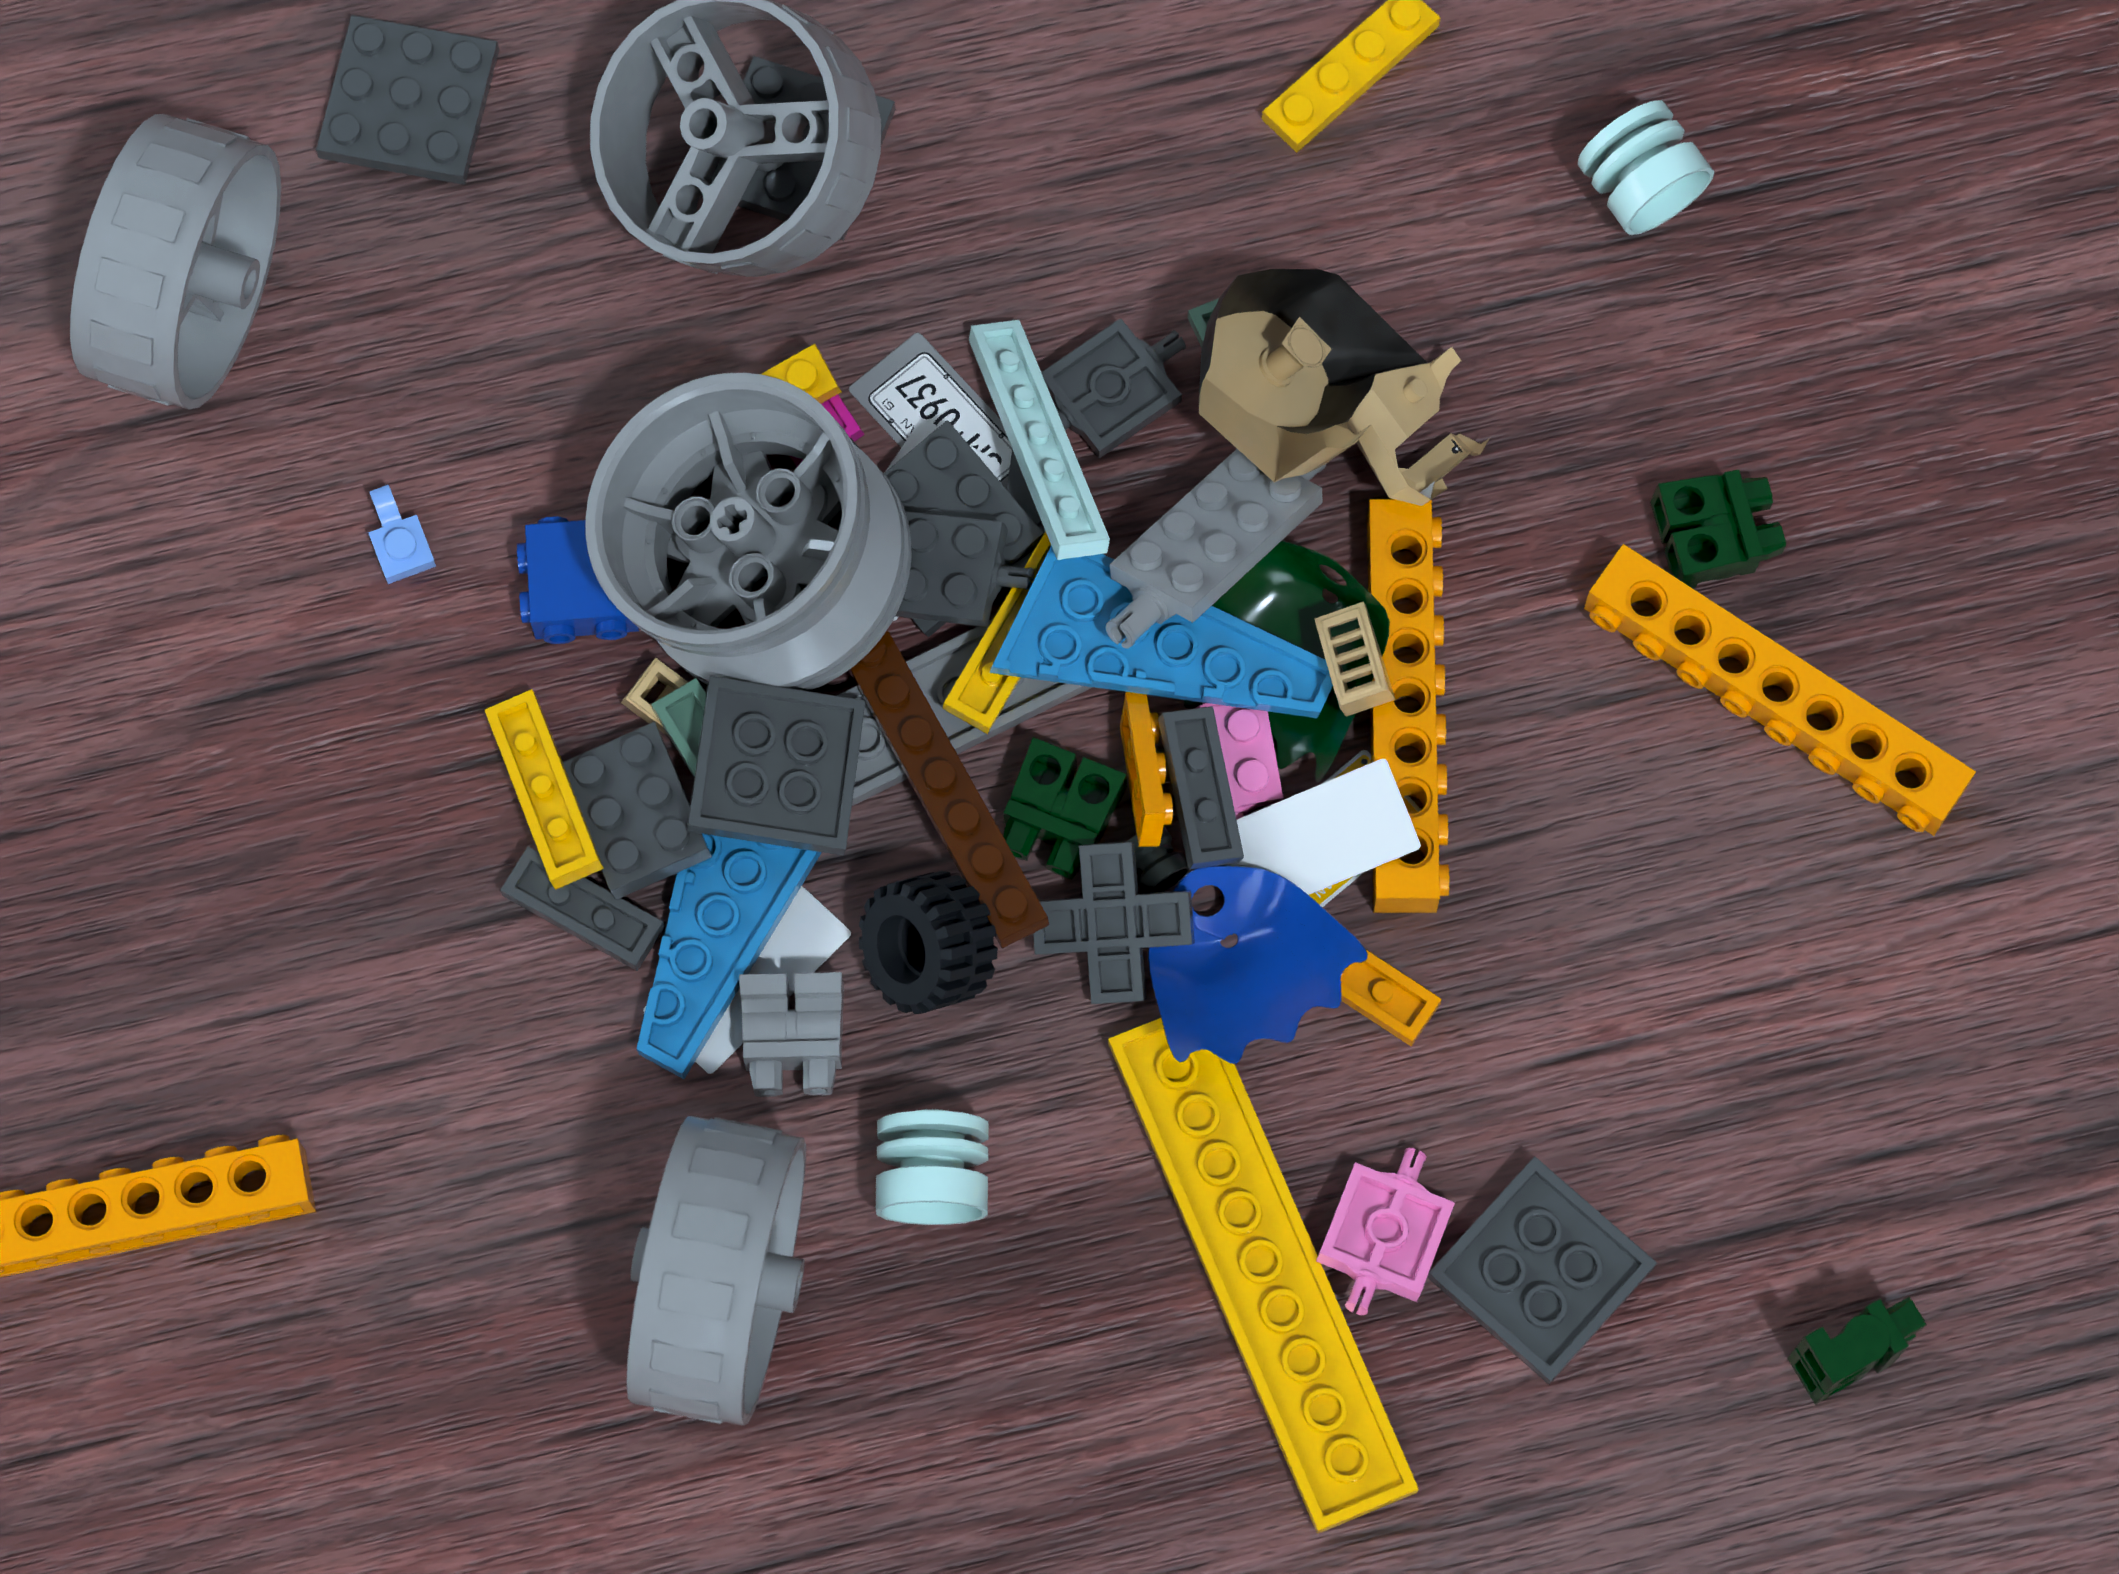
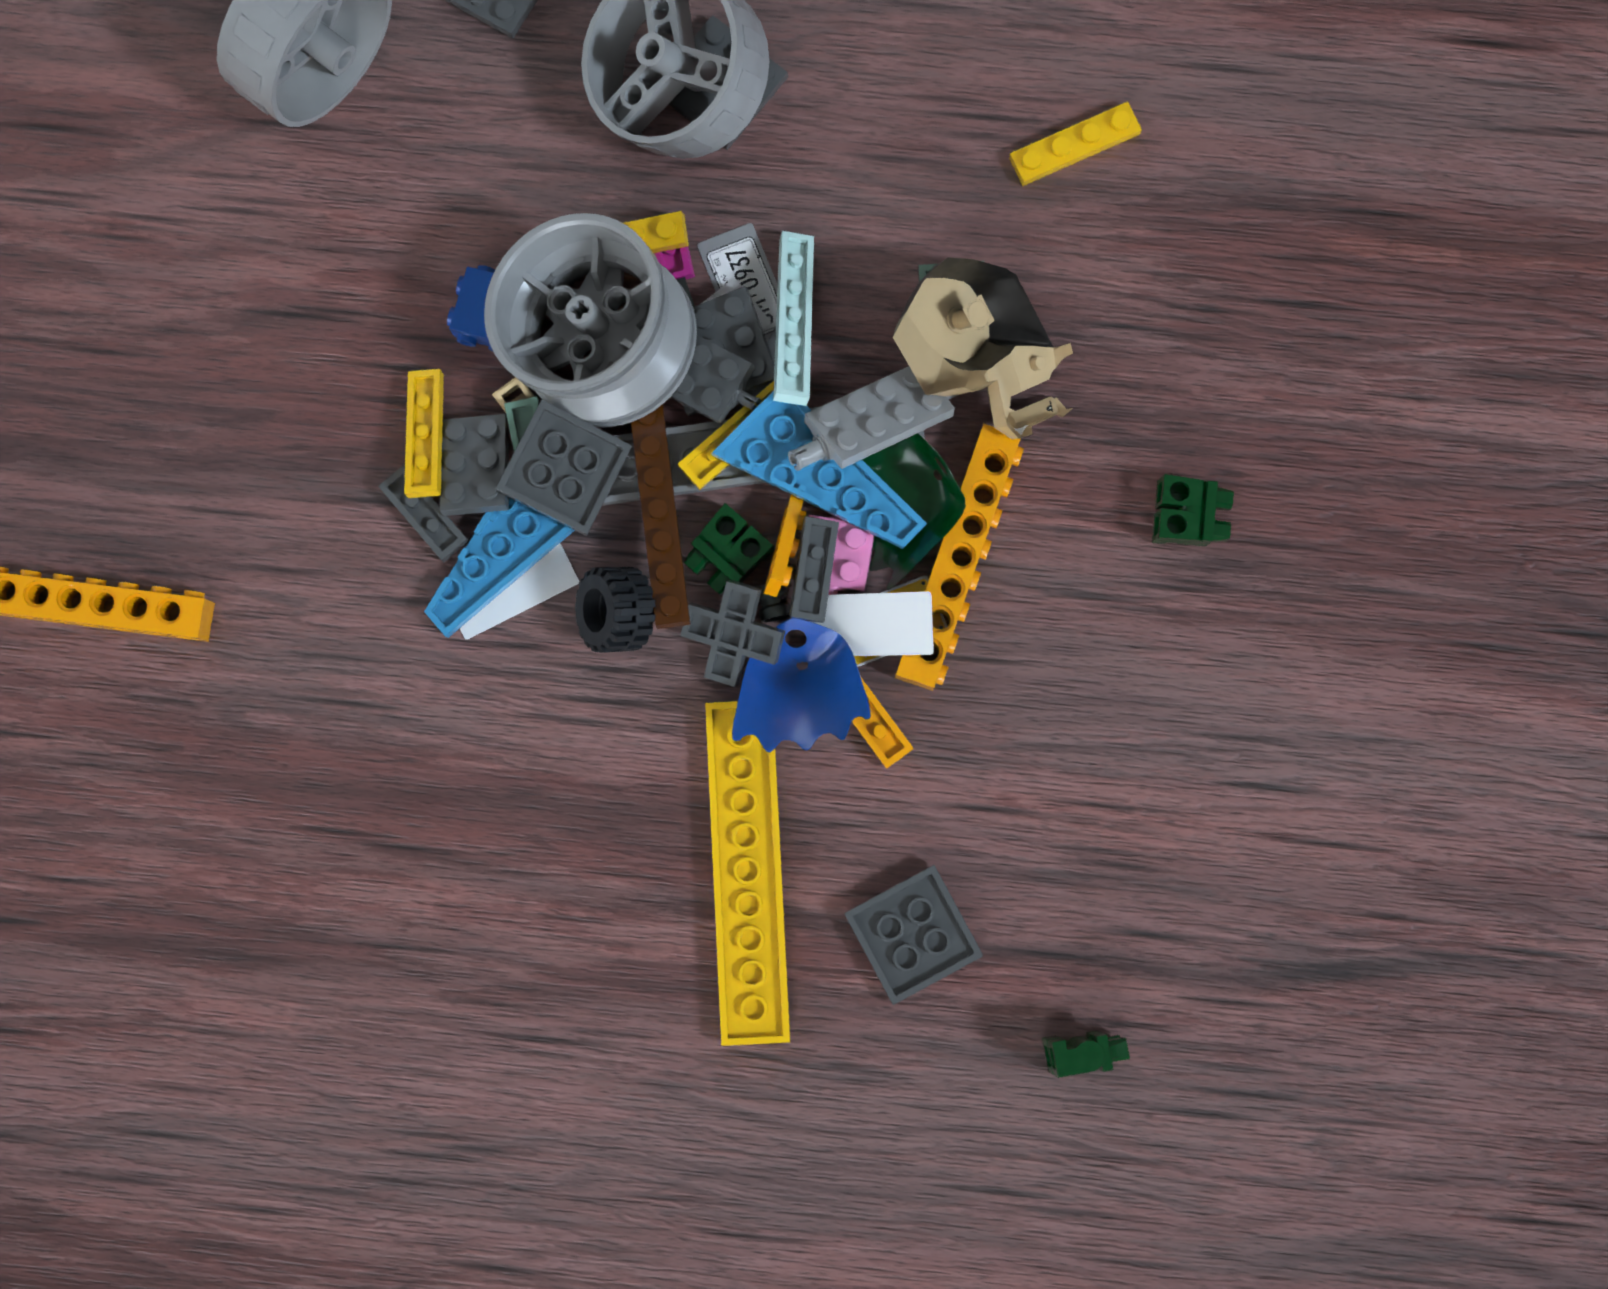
camera: 25 degrees right, 10 degrees up
(399, 542) = (395, 251): light blue plate -> none
(716, 1270) = (407, 773): light grey wheel -> none
(794, 1038) = (513, 633): light grey hips -> none
(932, 1156) = (570, 746): light aqua wheel -> none
(1113, 386) = (855, 297): dark grey plate -> none
(1366, 695) = (944, 547): tan slope -> none
(1385, 1231) = (827, 879): bright pink plate -> none
(1645, 167) = (1232, 269): light aqua wheel -> none
(1767, 663) = (1249, 688): light orange brick -> none

